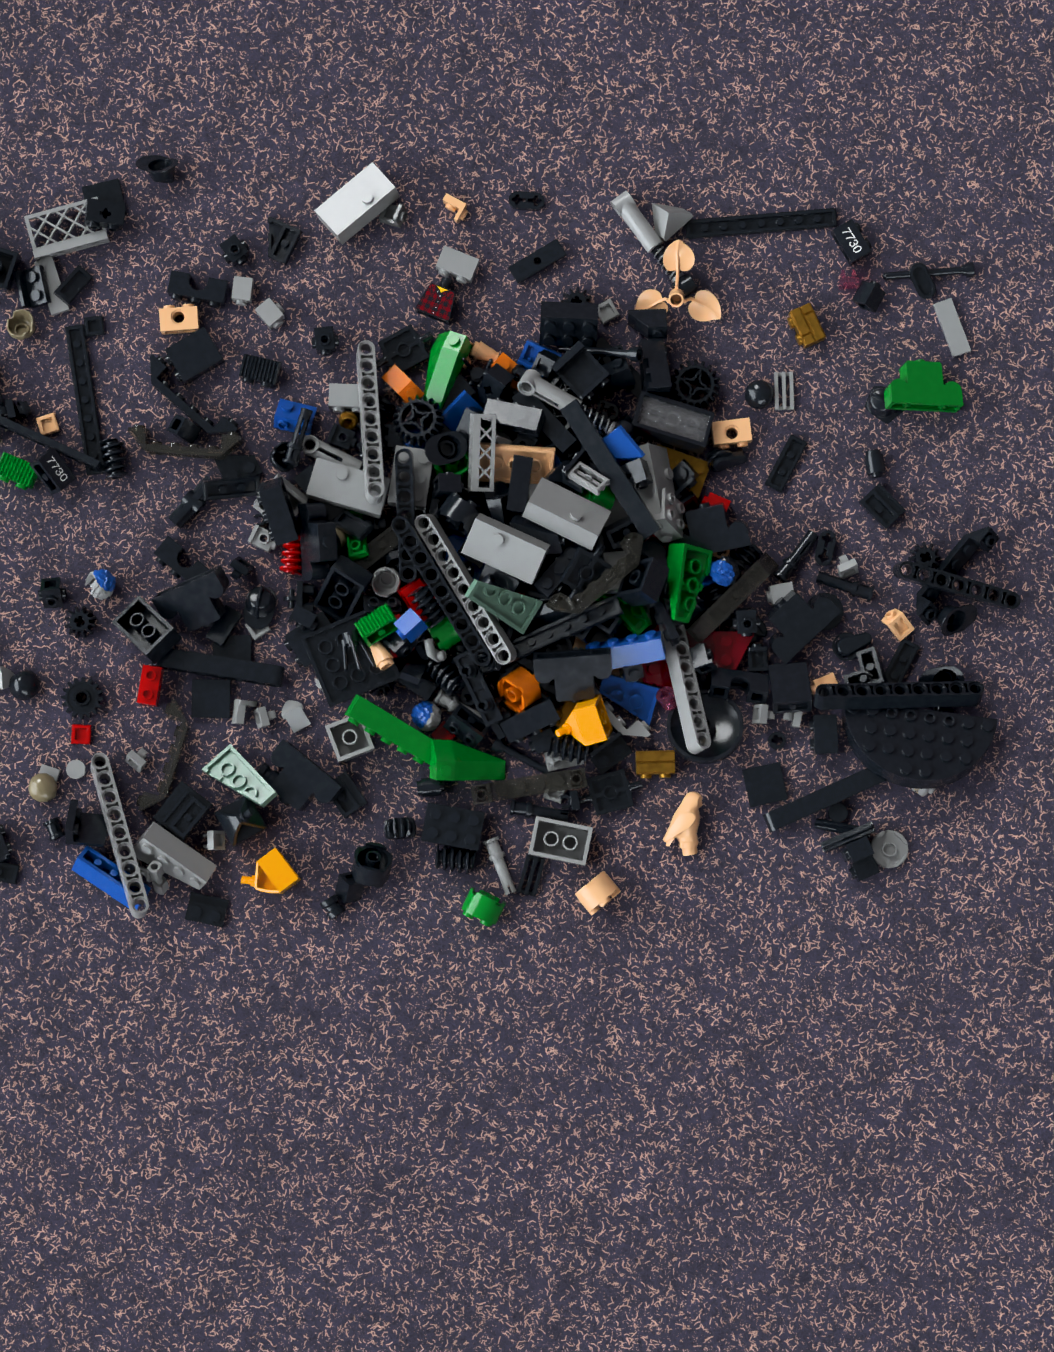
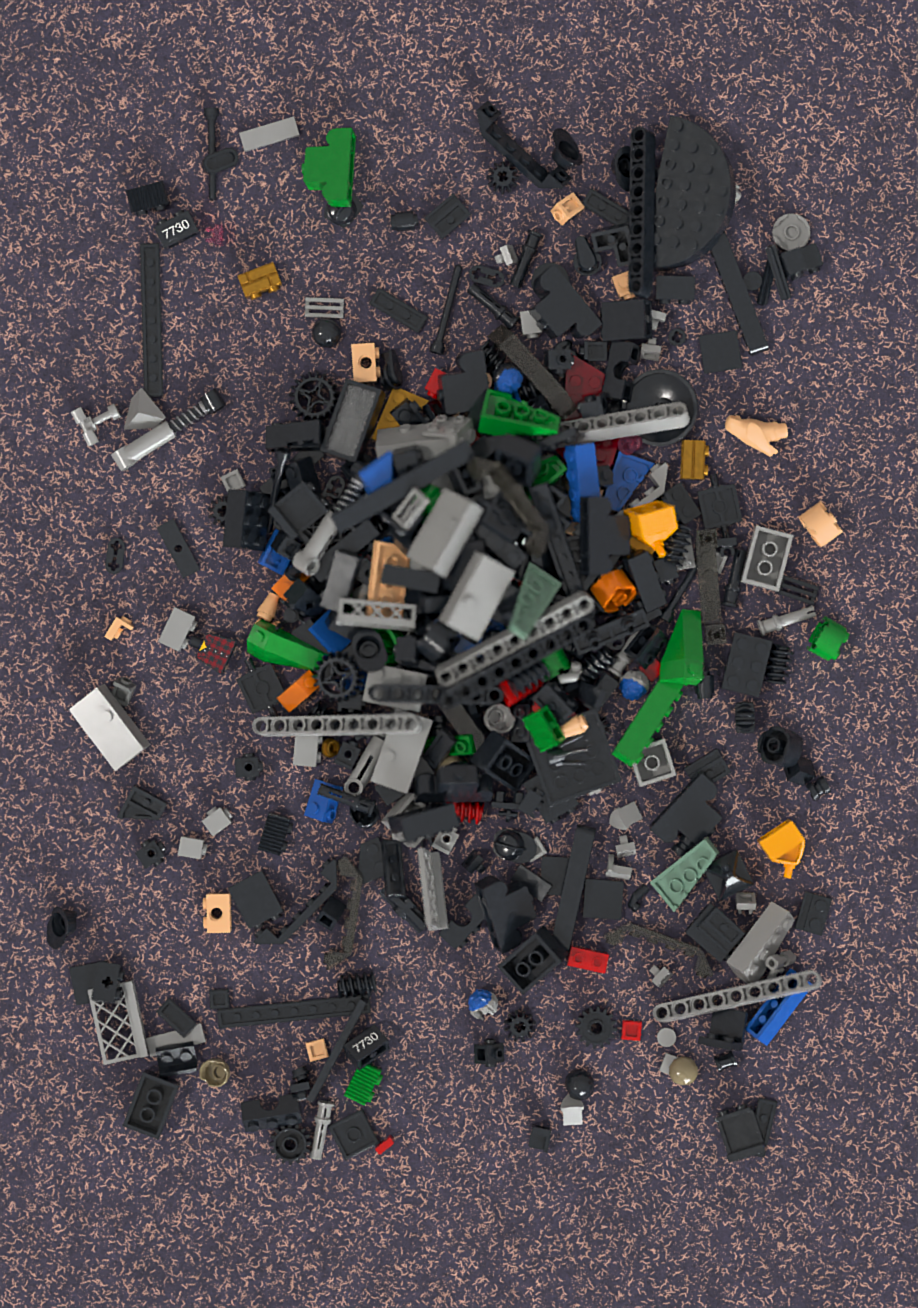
camera: 85 degrees left, 5 degrees up
(212, 525) = (432, 889): none -> light grey fence
(214, 293) = (186, 909): black arch -> none
(215, 731) = (636, 896): none -> black arm
(410, 625) = (548, 696): brick -> none
(649, 322) = (248, 438): black slope -> none
(654, 168) = (89, 425): none -> light grey bar
(705, 304) = (235, 384): light nougat plant -> none
(754, 504) = (438, 345): none -> black piece
(869, 296) = (233, 215): black brick -> none
(880, 213) = (148, 198): none -> black brick
(965, 585) = (534, 138): black beam -> none

